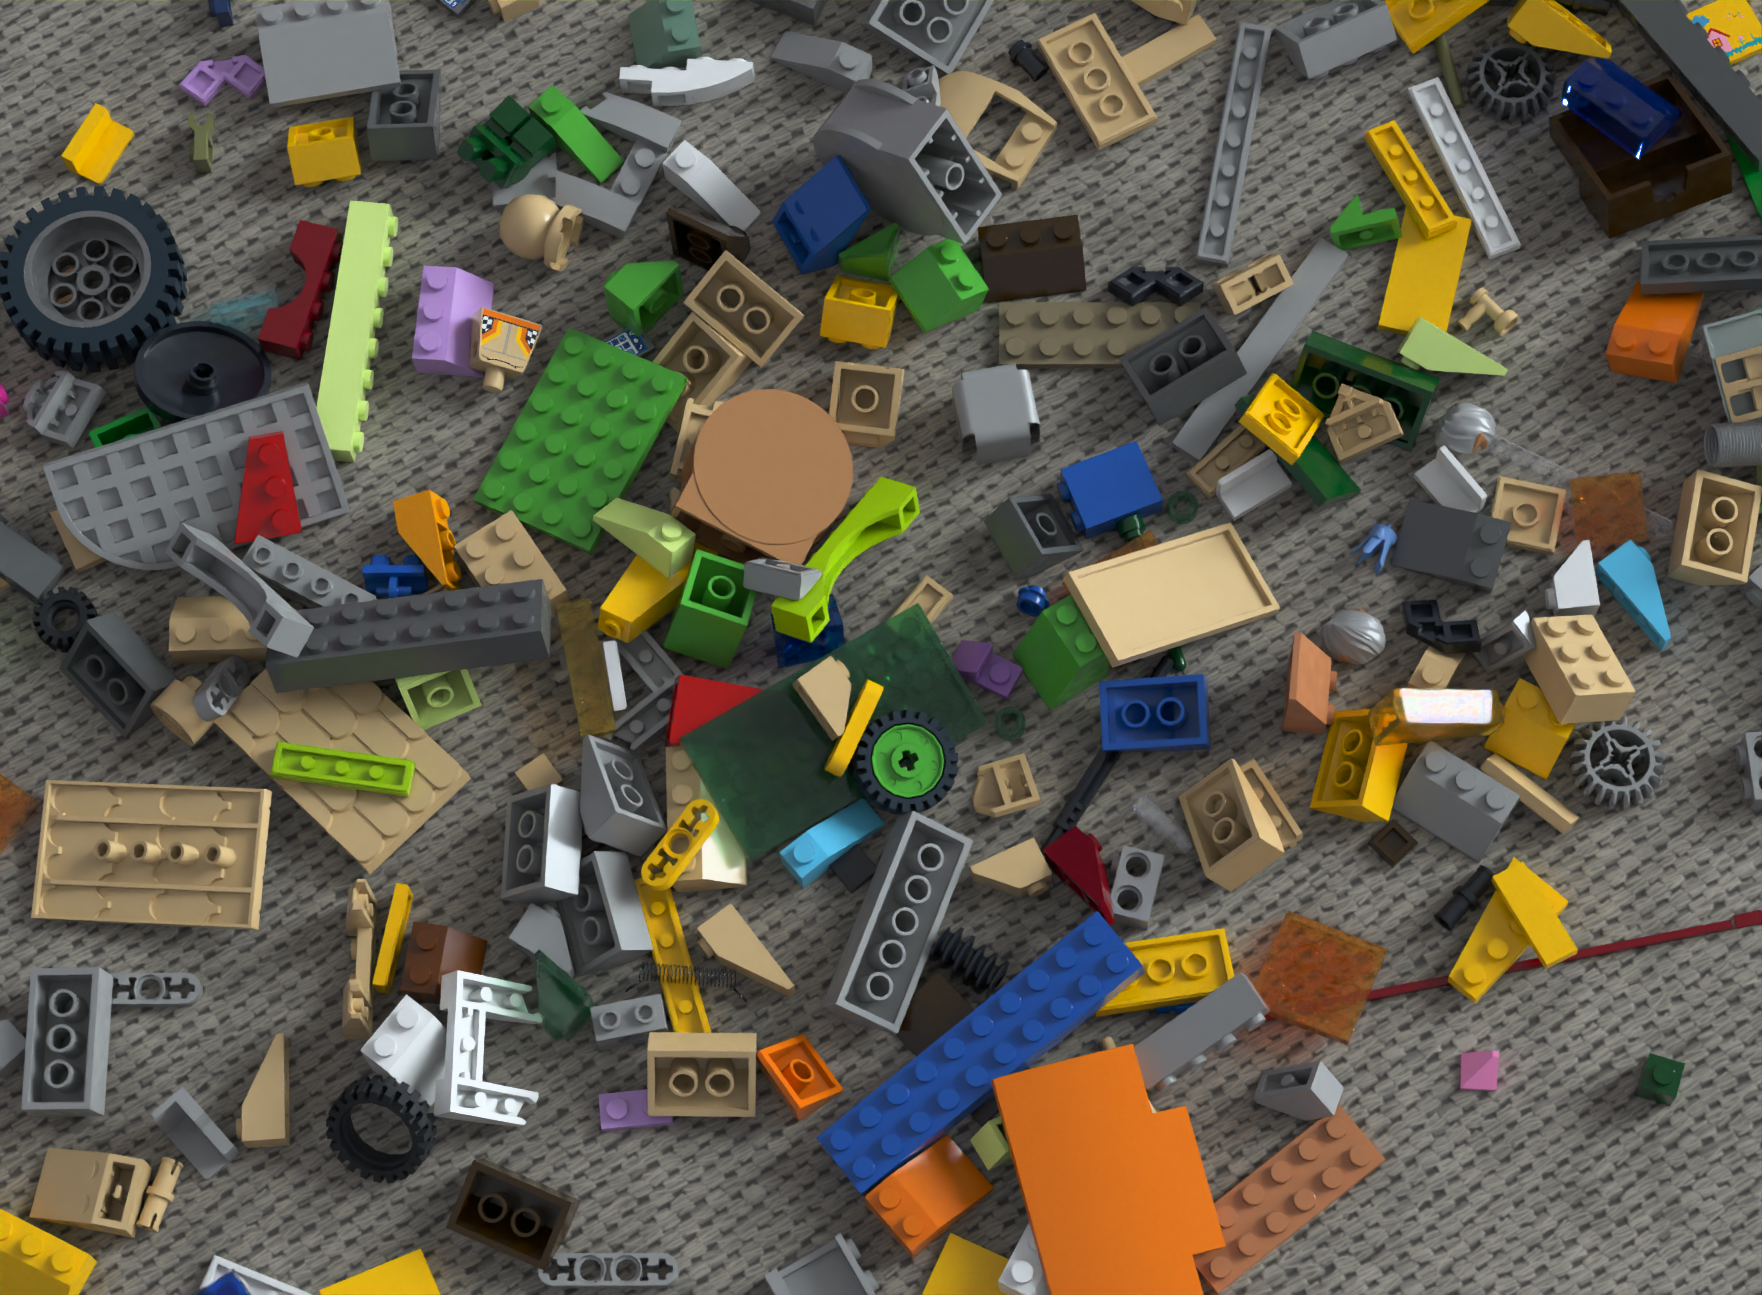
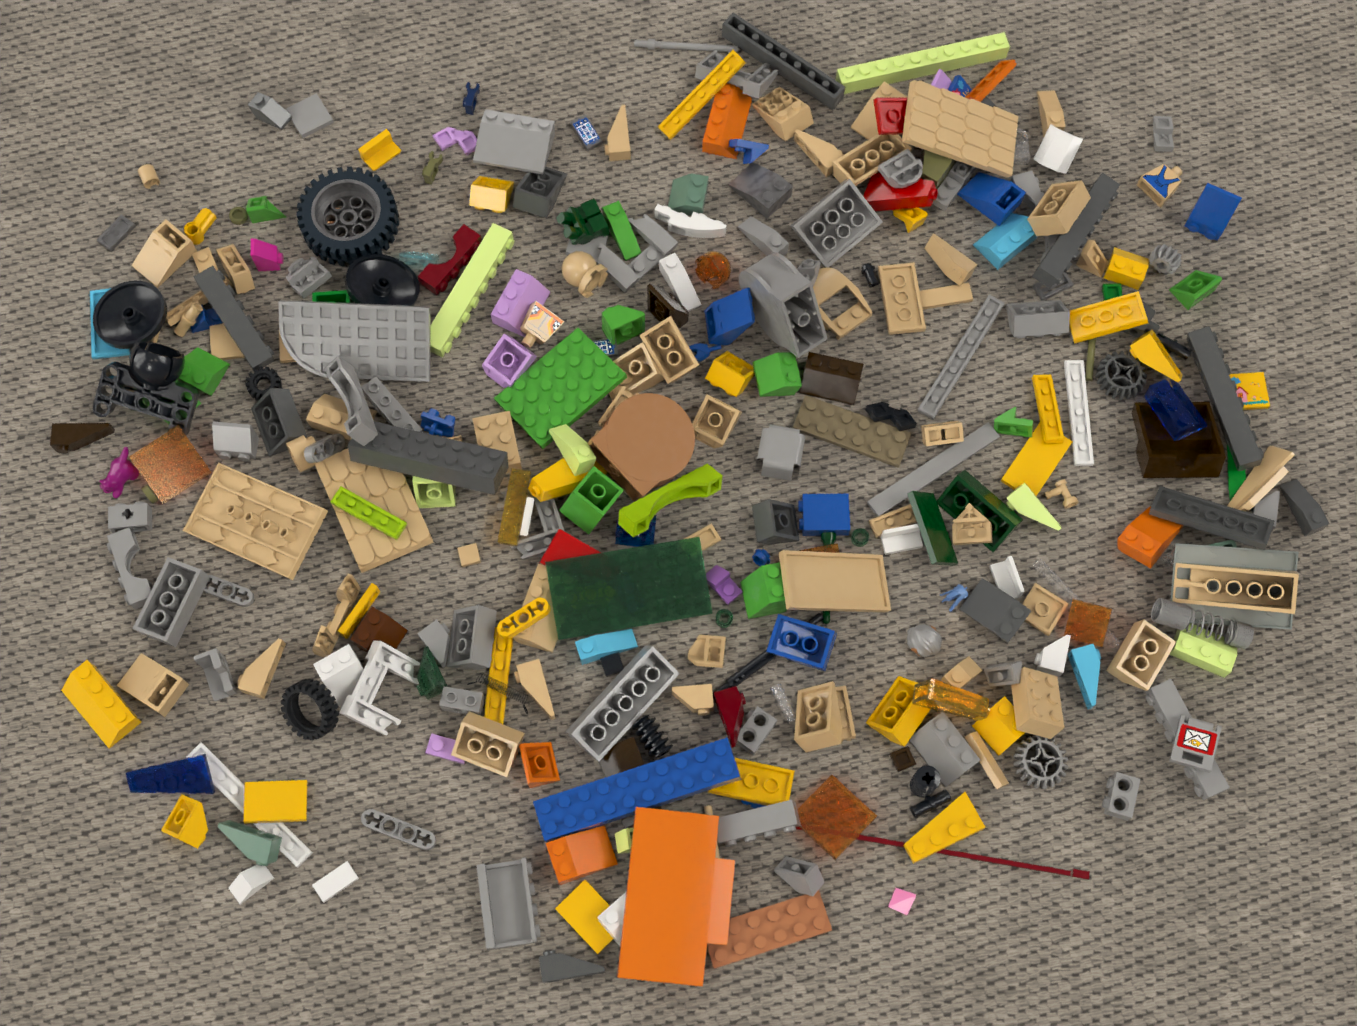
camera: 15 degrees right, 0 degrees up
(59, 733) = (234, 441): none -> light grey slope
(159, 1195) = (186, 699): tan pin -> none
(267, 492) = (389, 355): red wing -> none
(425, 528) = (462, 404): light orange slope -> none
(472, 429) = (507, 361): none -> lavender slope
(512, 1213) = (360, 780): dark brown slope -> none
(542, 846) = (454, 591): light grey brick -> none
(617, 798) = (502, 581): light grey slope -> none
(755, 139) = (712, 265): none -> clear orange cylinder
(779, 577) = (630, 497): light grey slope -> none
(797, 290) = (702, 350): none -> blue hand
(827, 694) = (631, 567): tan slope -> none
(854, 728) = (638, 591): yellow beam -> none
(873, 255) = (750, 346): bright green slope -> none
(927, 777) = (648, 607): wheel -> none
(1183, 366) = (888, 463): dark grey slope -> none
(1282, 418) = (930, 510): yellow tile -> none
(1308, 688) = (888, 659): nougat slope -> none
(1443, 864) = (930, 776): none -> black piece
(1453, 637) = (976, 660): black tile -> none
(1465, 428) = (1026, 551): light grey hair -> none
(1534, 915) = (963, 828): yellow tile -> none
(1659, 1079) = (998, 944): dark green brick -> none

